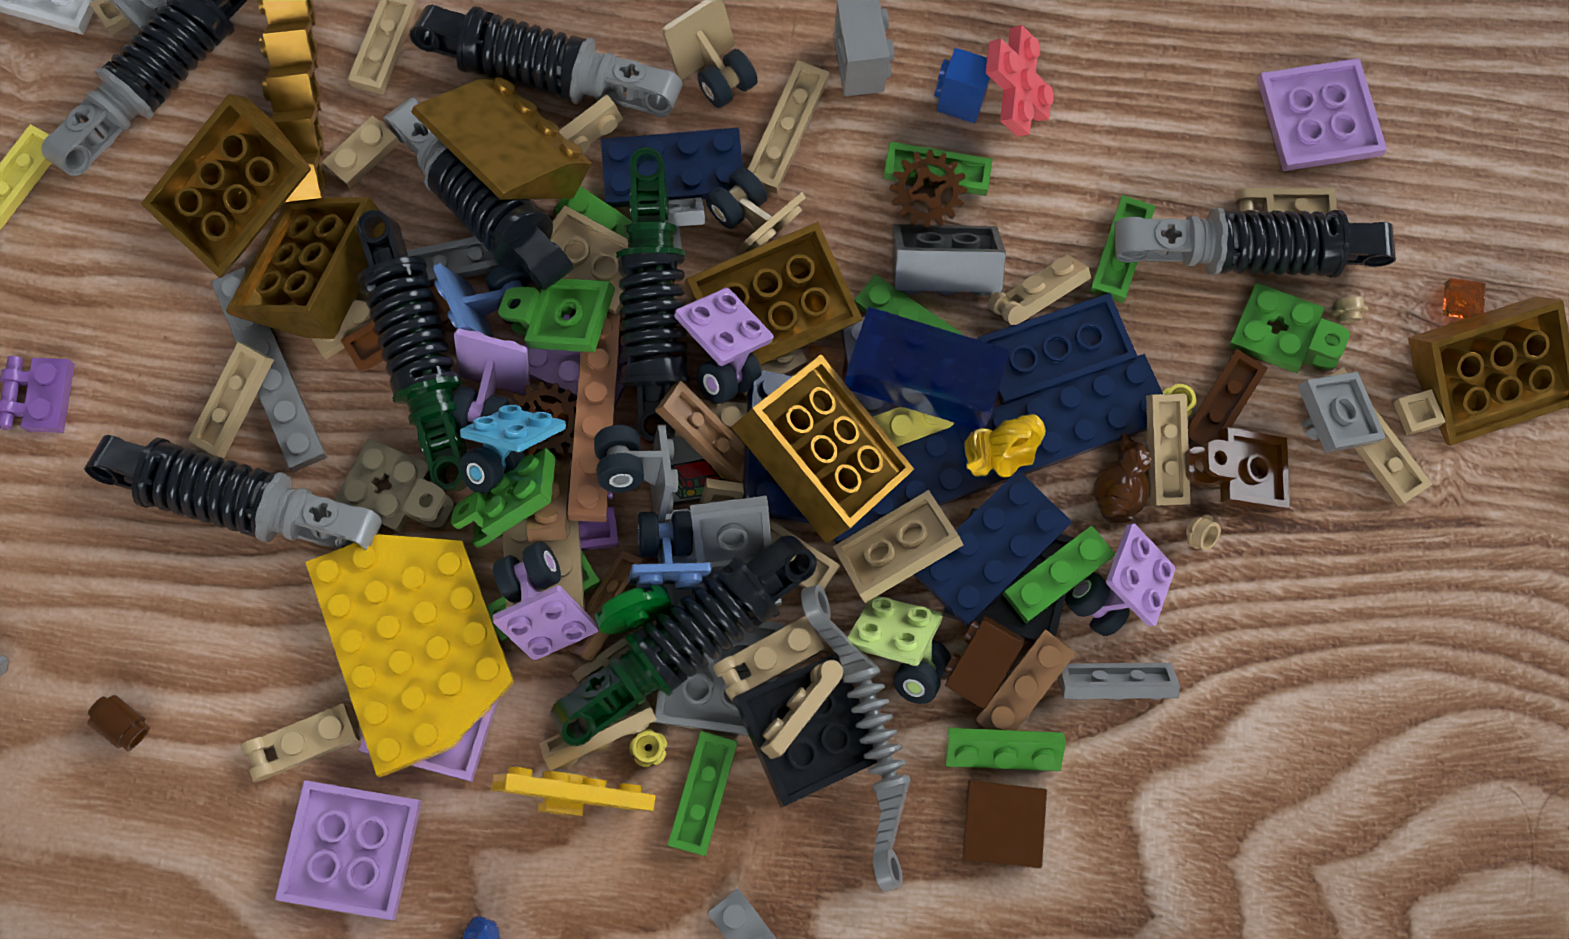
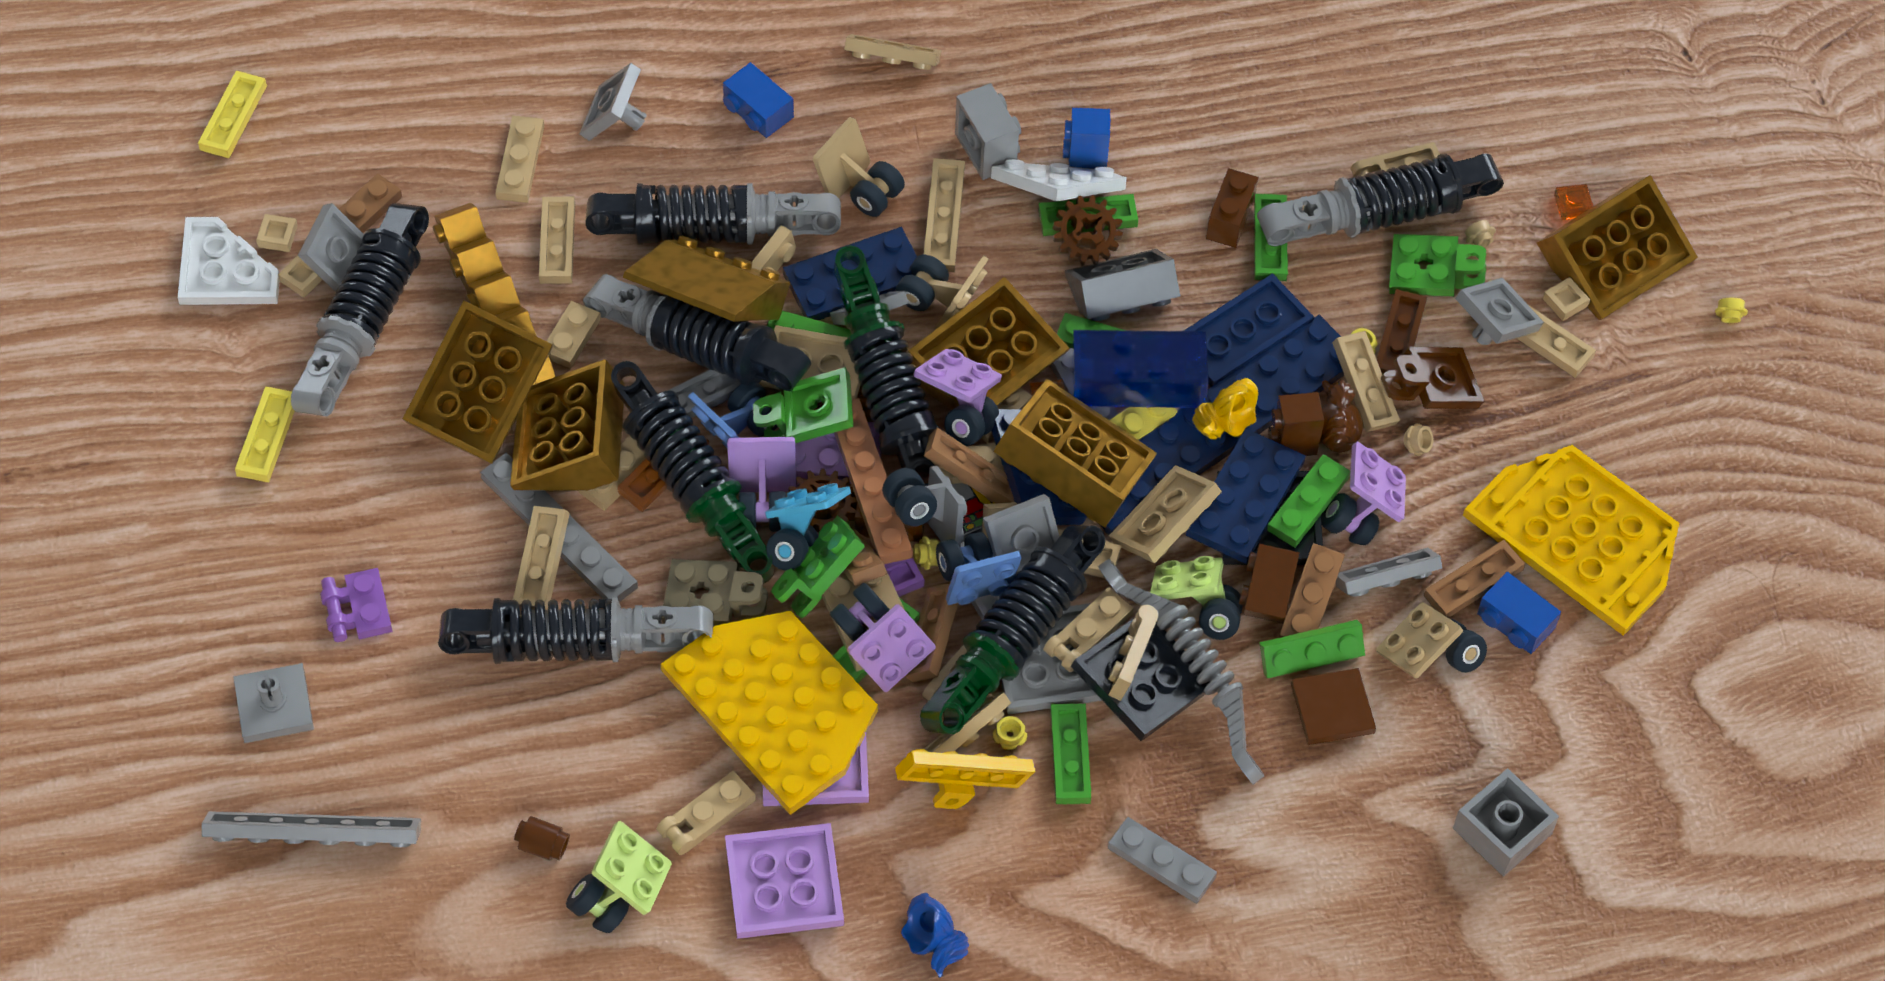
camera: 15 degrees left, 15 degrees down
(180, 797) = (632, 876): none -> yellowish green plate
(631, 508) = (925, 552): none -> light yellow plate
(632, 609) = (961, 616): green plate -> none
(917, 124) = (1058, 179): none -> white plate
(1014, 70) = (1127, 112): coral plate -> none
(1039, 290) = (1211, 287): tan plate -> none
(1075, 482) = (1298, 422): none -> reddish brown brick
(1092, 204) = (1232, 208): none -> reddish brown brick
(1134, 779) = (1426, 636): none -> tan plate
(1209, 718) = (1473, 579): none -> medium nougat plate
(1244, 775) = (1518, 613): none -> blue brick
(1321, 114) = (1402, 87): lavender plate -> none
(1347, 698) = (1581, 532): none -> yellow plate

